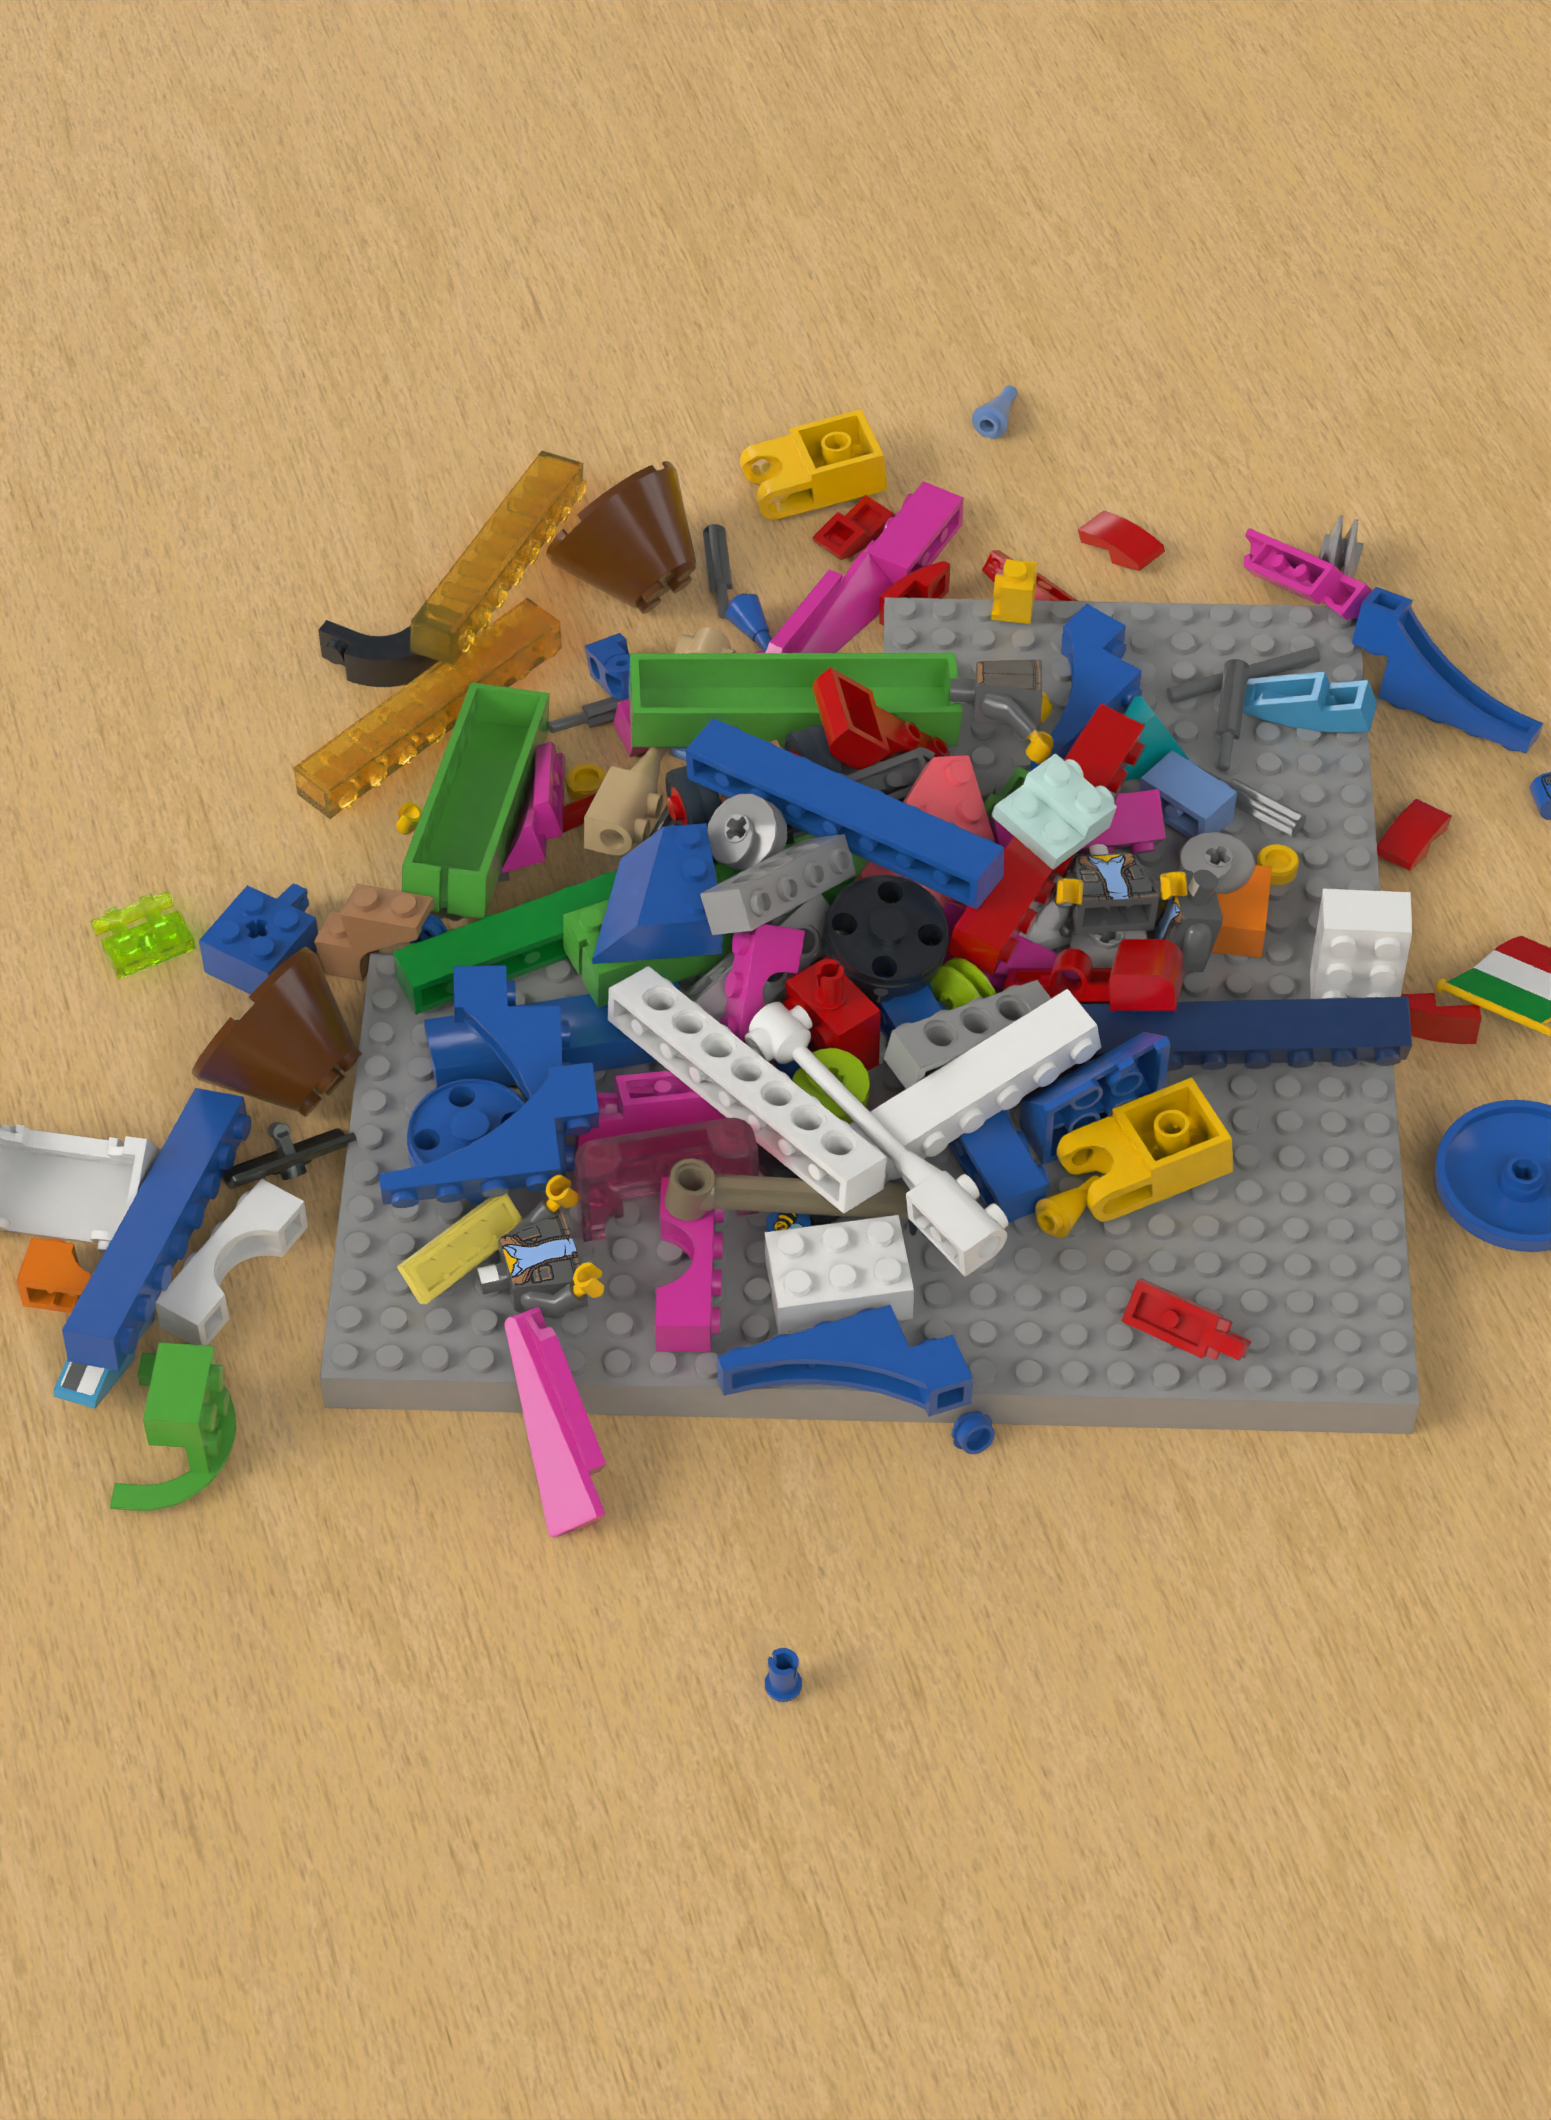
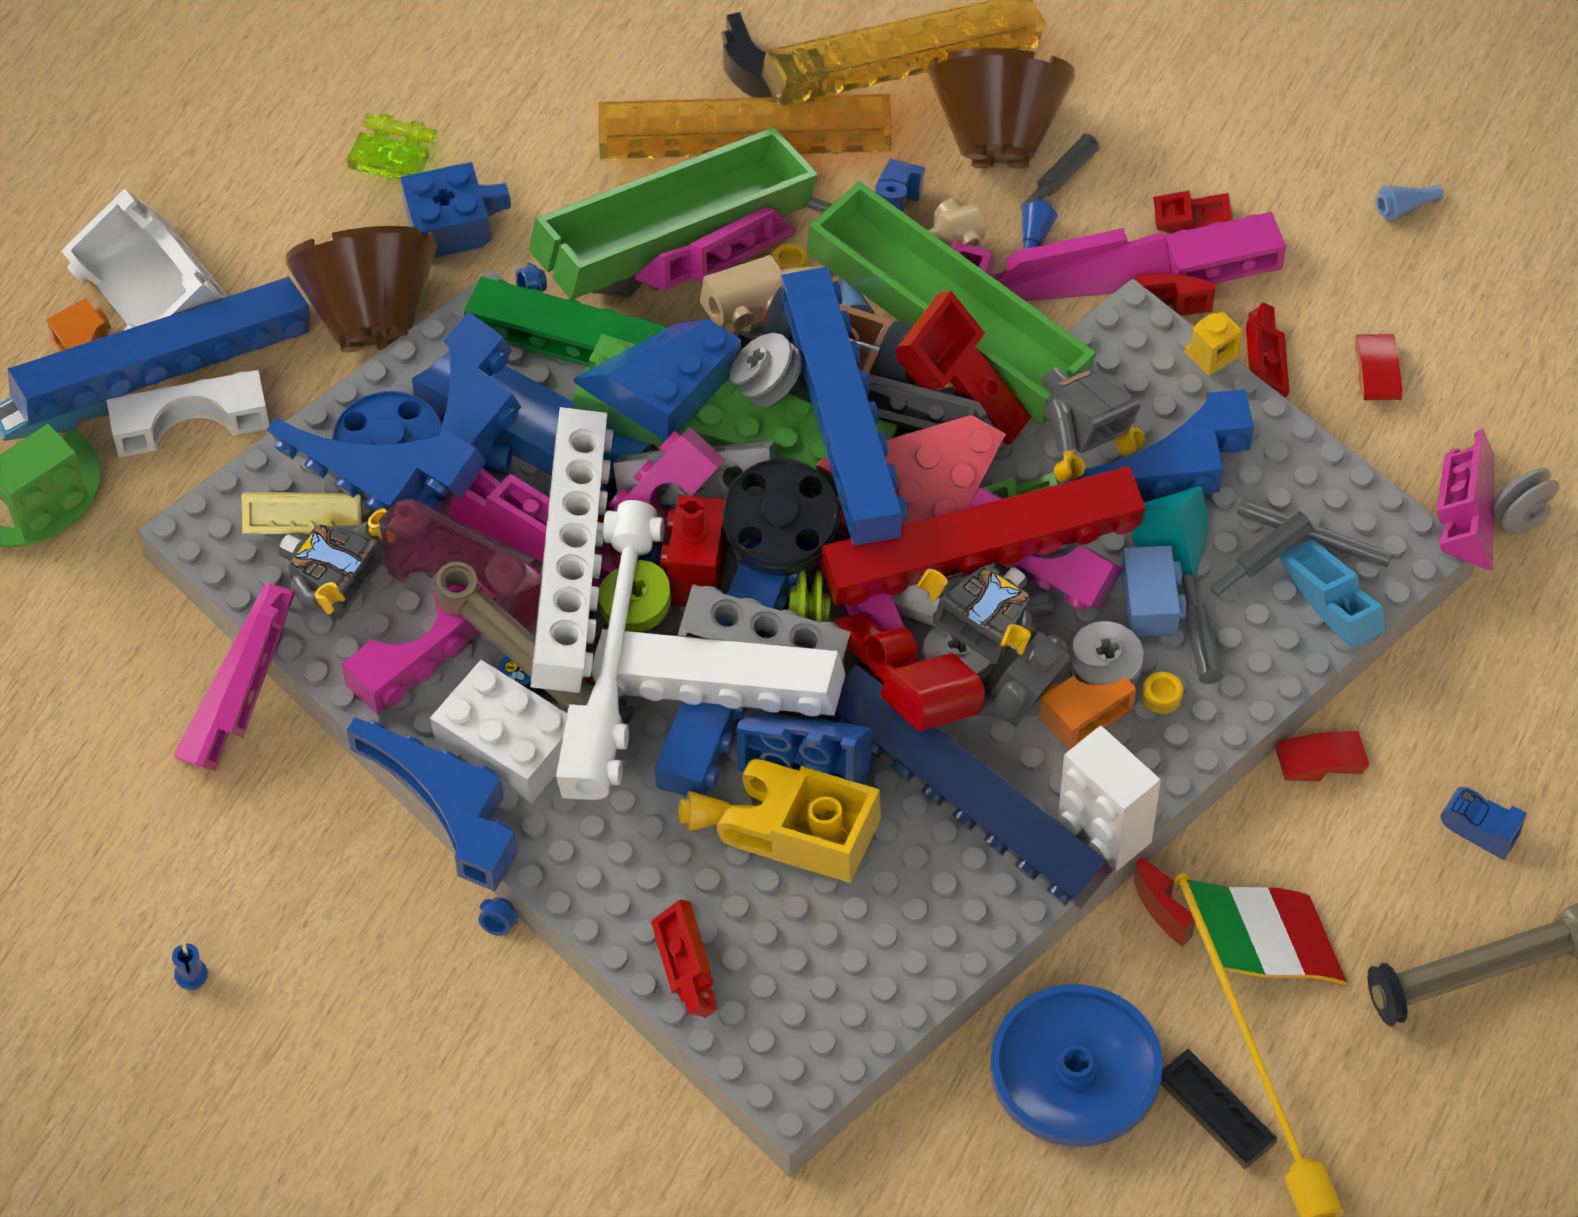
camera: 45 degrees right, 5 degrees up
(288, 1158) = (295, 367): pearl dark grey shield -> none
(366, 924) = (502, 247): medium nougat arch -> none
(778, 884) = (733, 420): light grey brick -> none
(816, 465) = (1214, 145): yellow brick -> none
(1056, 811) = (990, 519): light aqua plate -> none
(1427, 682) = (1467, 650): blue arch -> none

